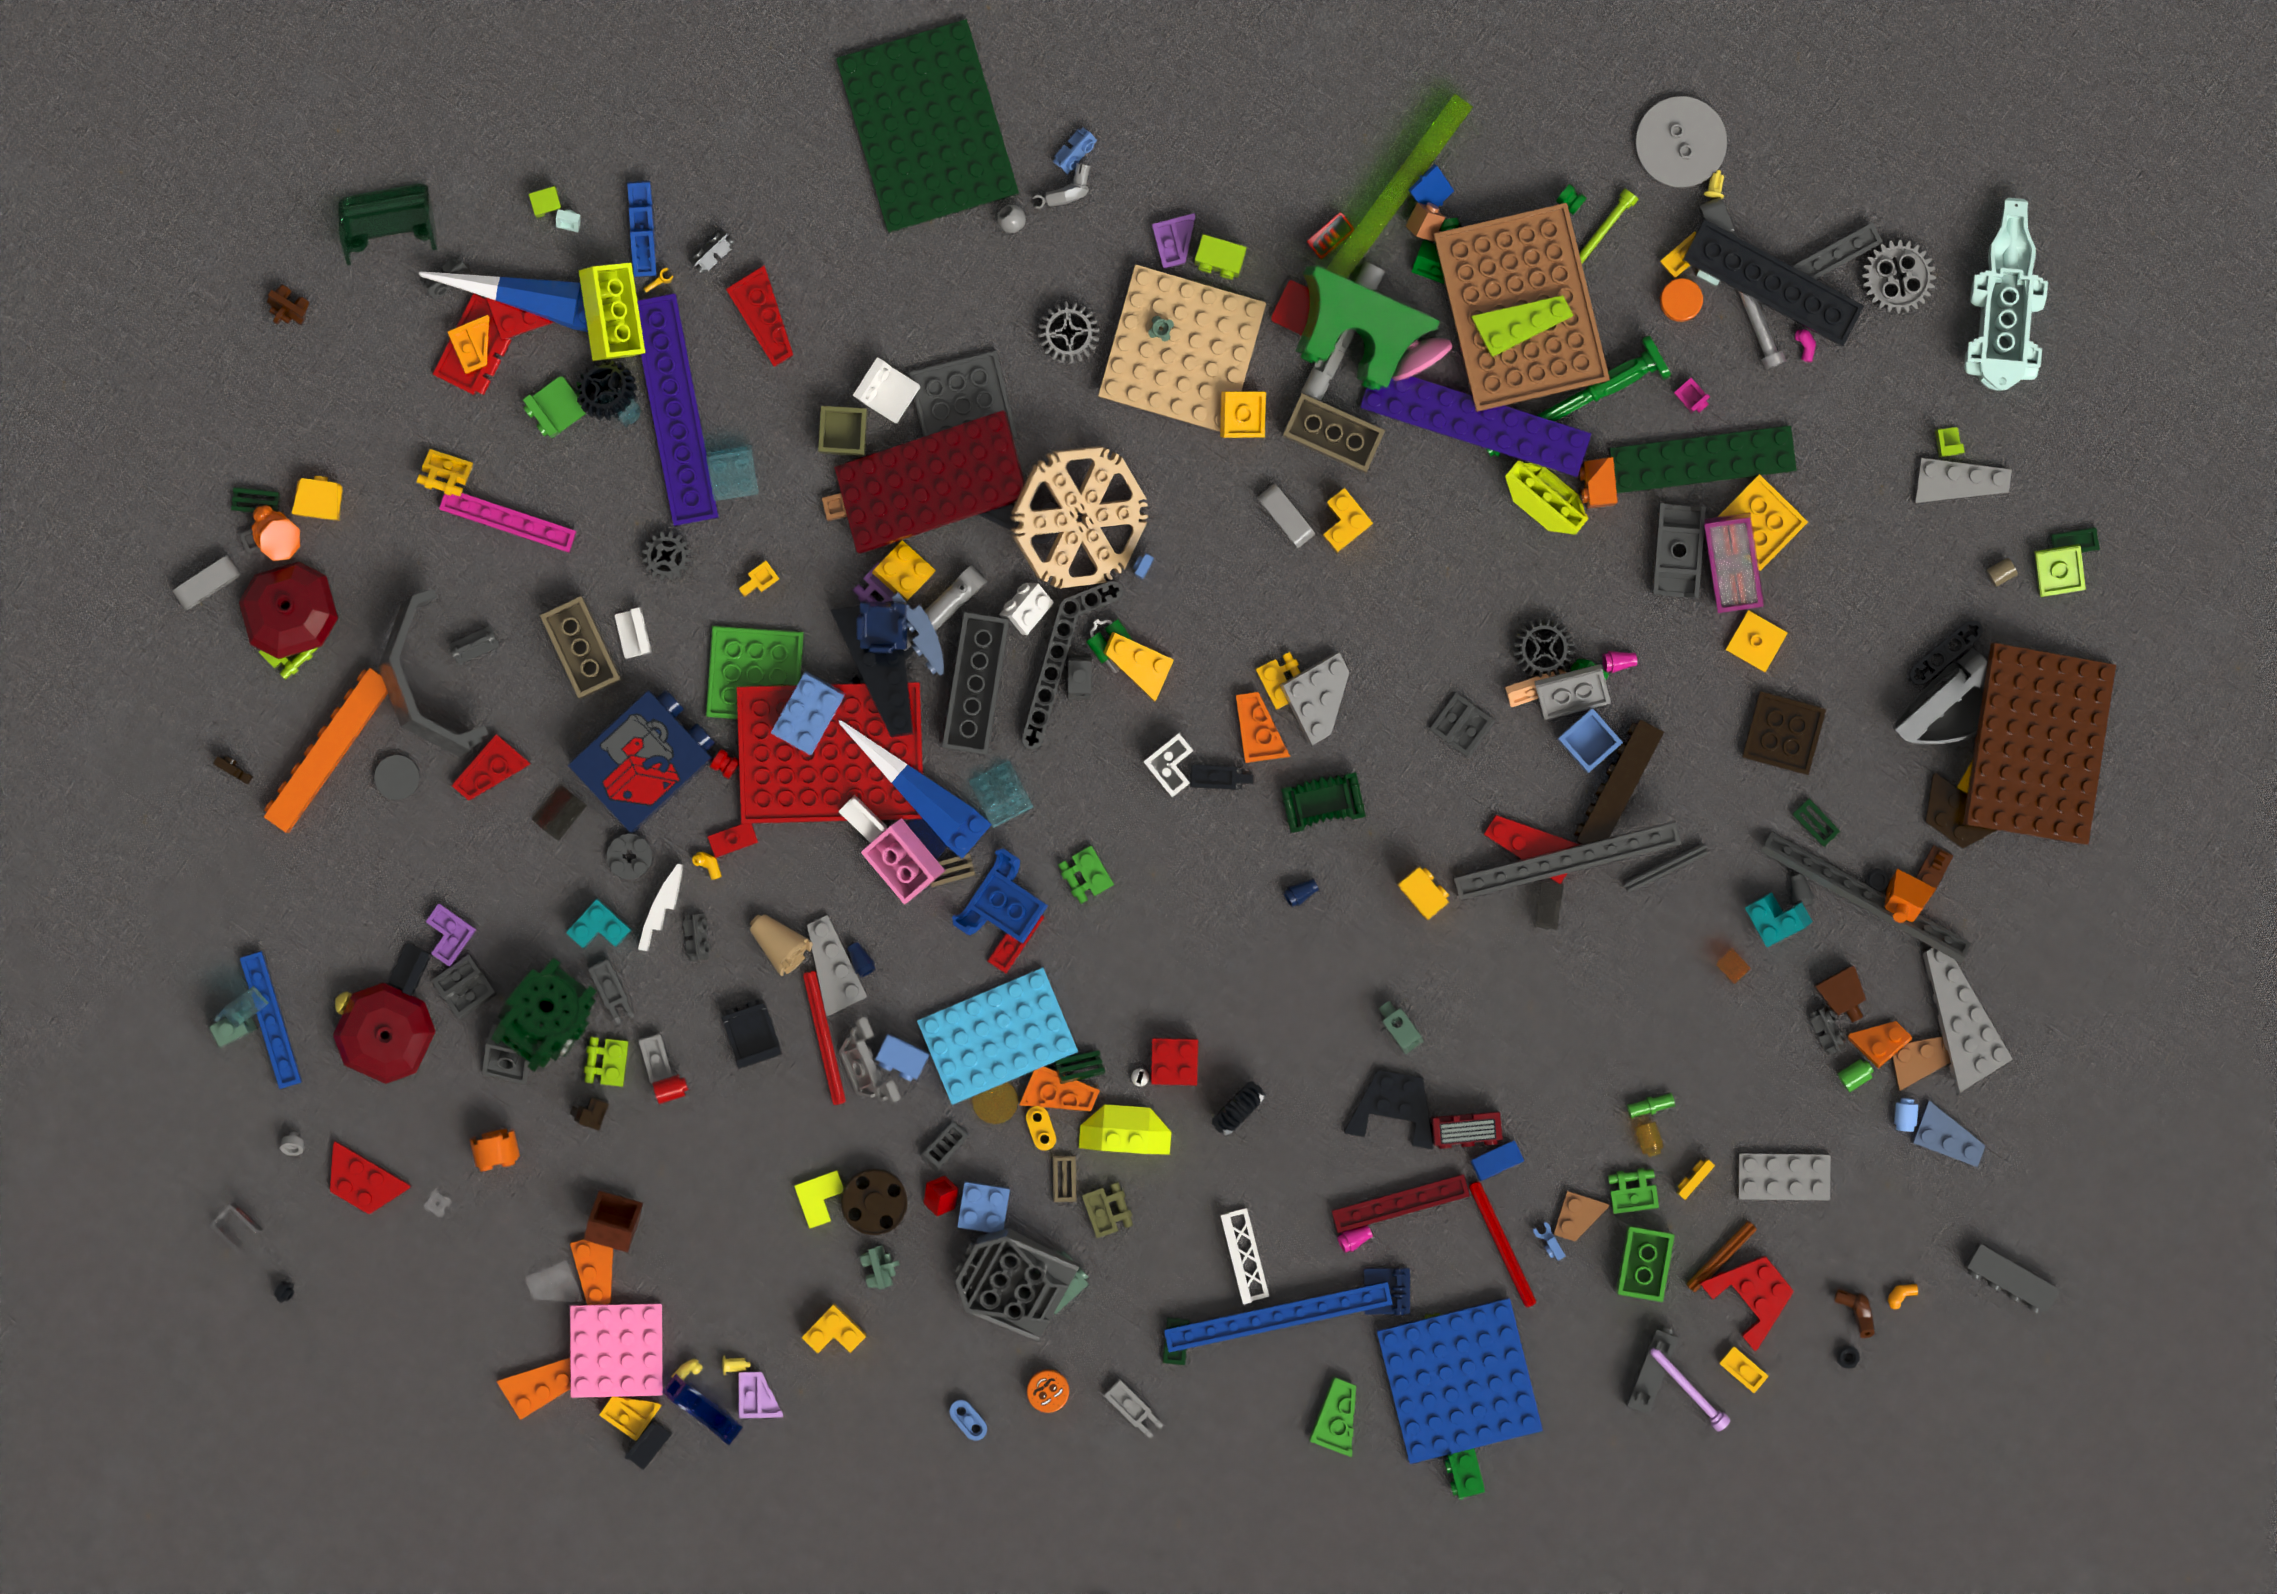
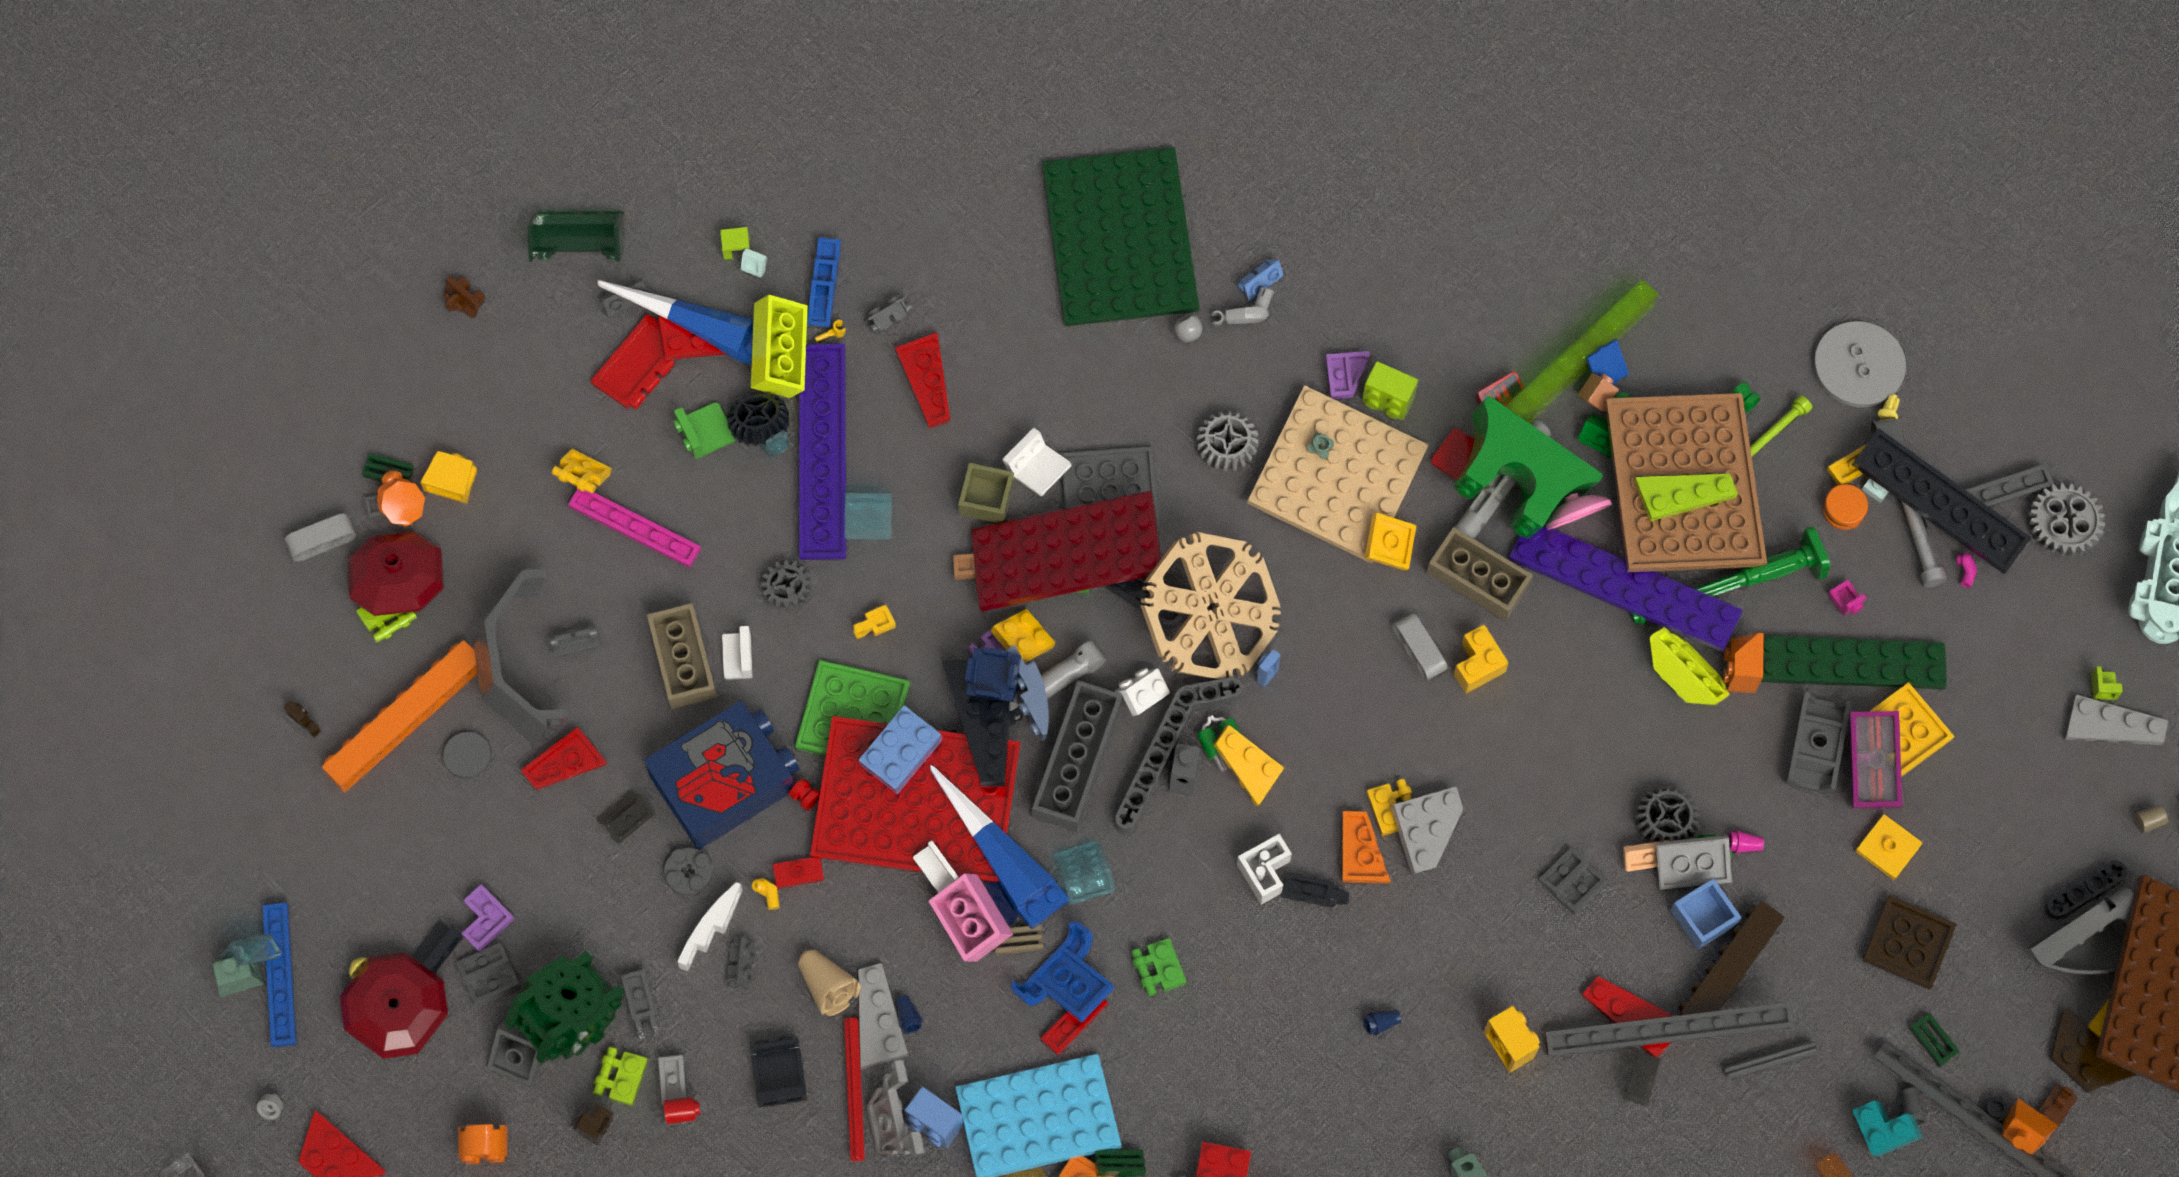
camera: 10 degrees right, 20 degrees down
(471, 344) = (634, 357): light orange wing -> none
(596, 920) = (639, 928): teal brick -> none
(1323, 800) = (1418, 931): dark green piece -> none

